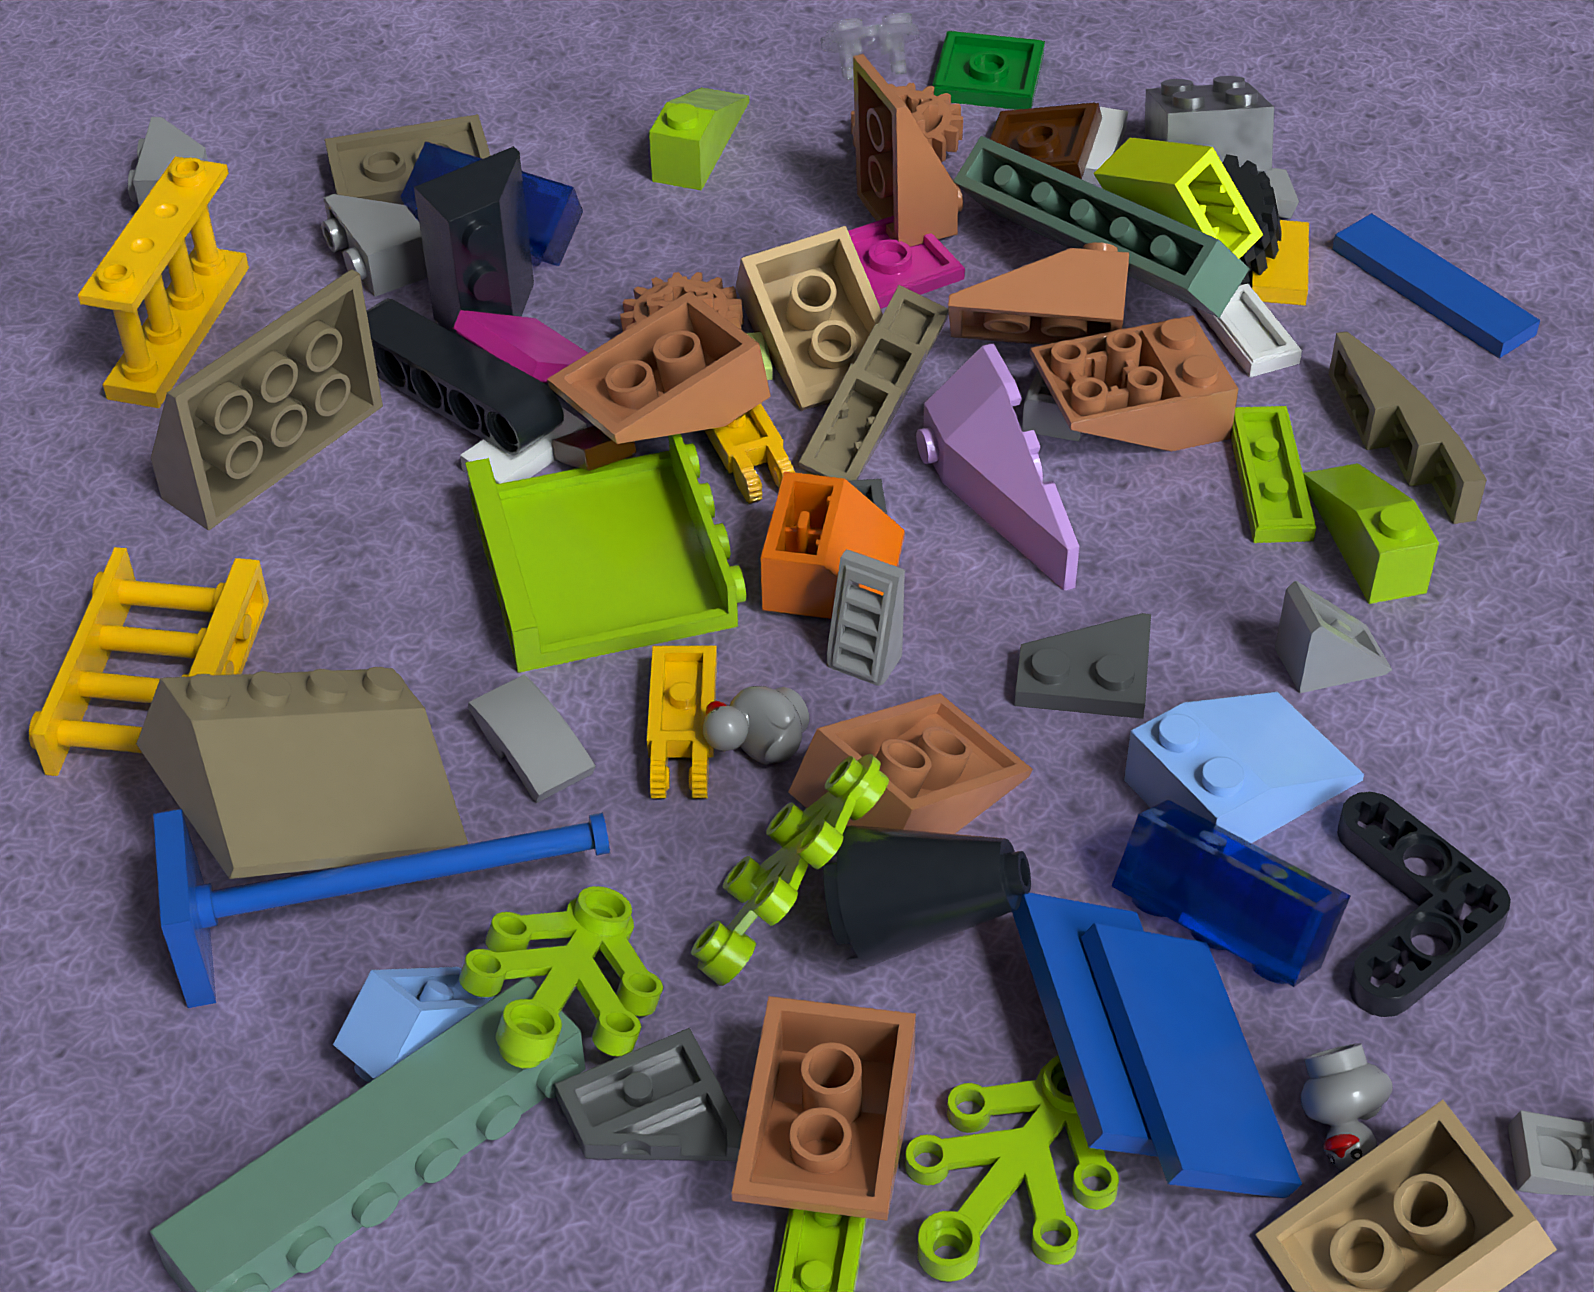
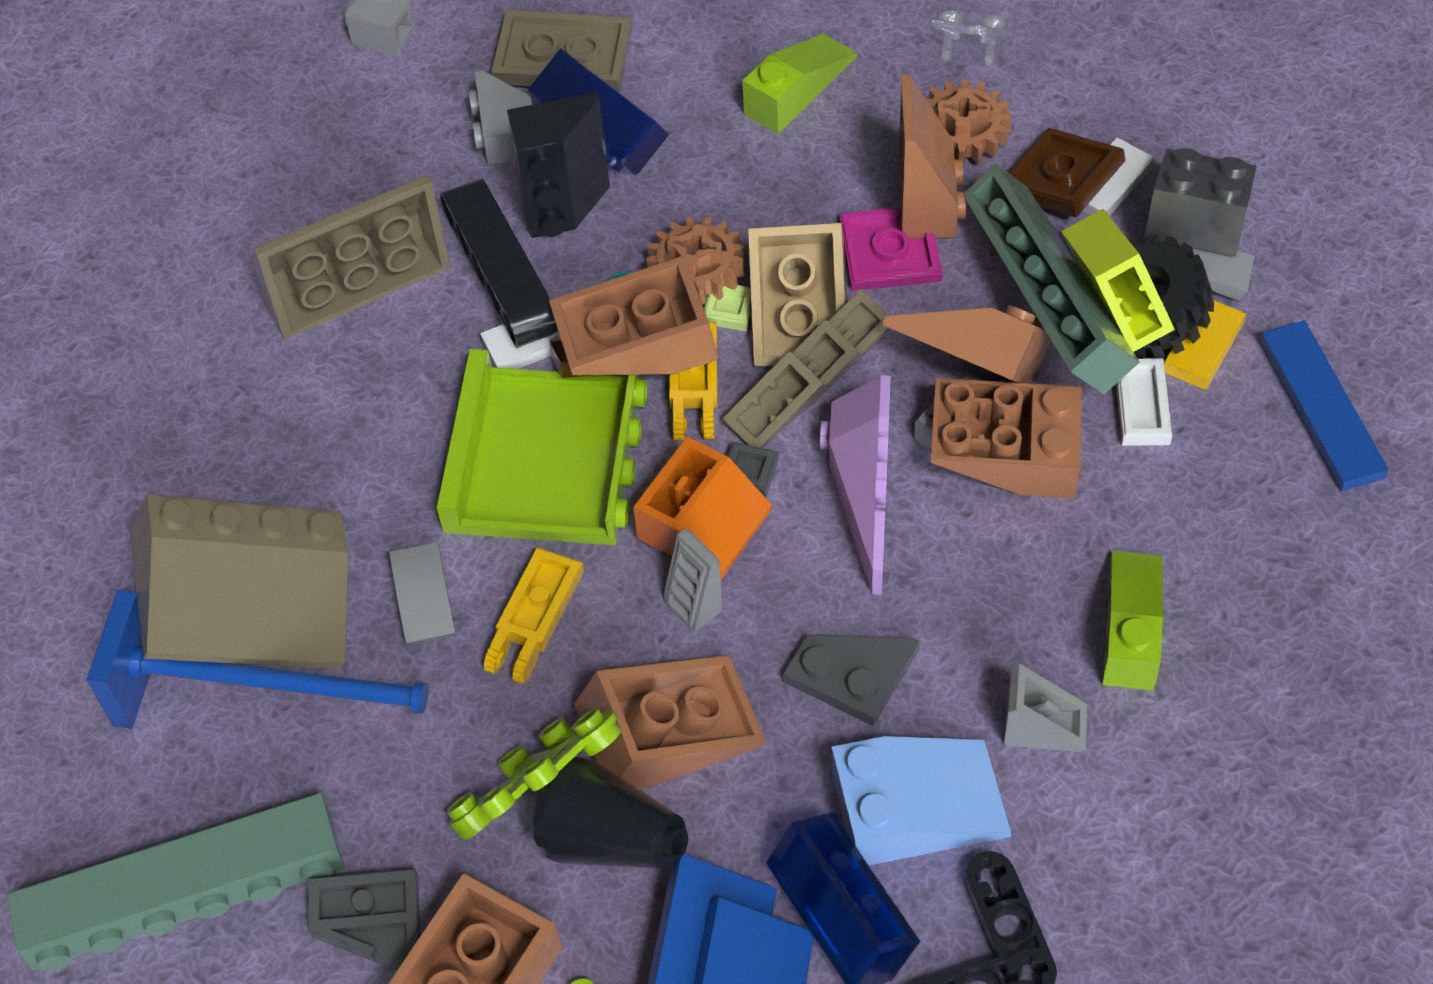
camera: 25 degrees right, 10 degrees up
(198, 286) = (343, 141): yellow fence -> none
(217, 650) = (240, 450): yellow fence -> none
(401, 1014) = (241, 787): light blue slope -> none
(519, 341) = (564, 252): dark pink tile -> none
(594, 922) = (350, 794): lime plant -> none
(760, 721) = (584, 637): light grey animal -> none
(989, 70) = (1064, 80): green tile -> none
(1271, 475) = (1085, 543): lime tile -> none
(1398, 416) = (1210, 526): dark tan slope -> none

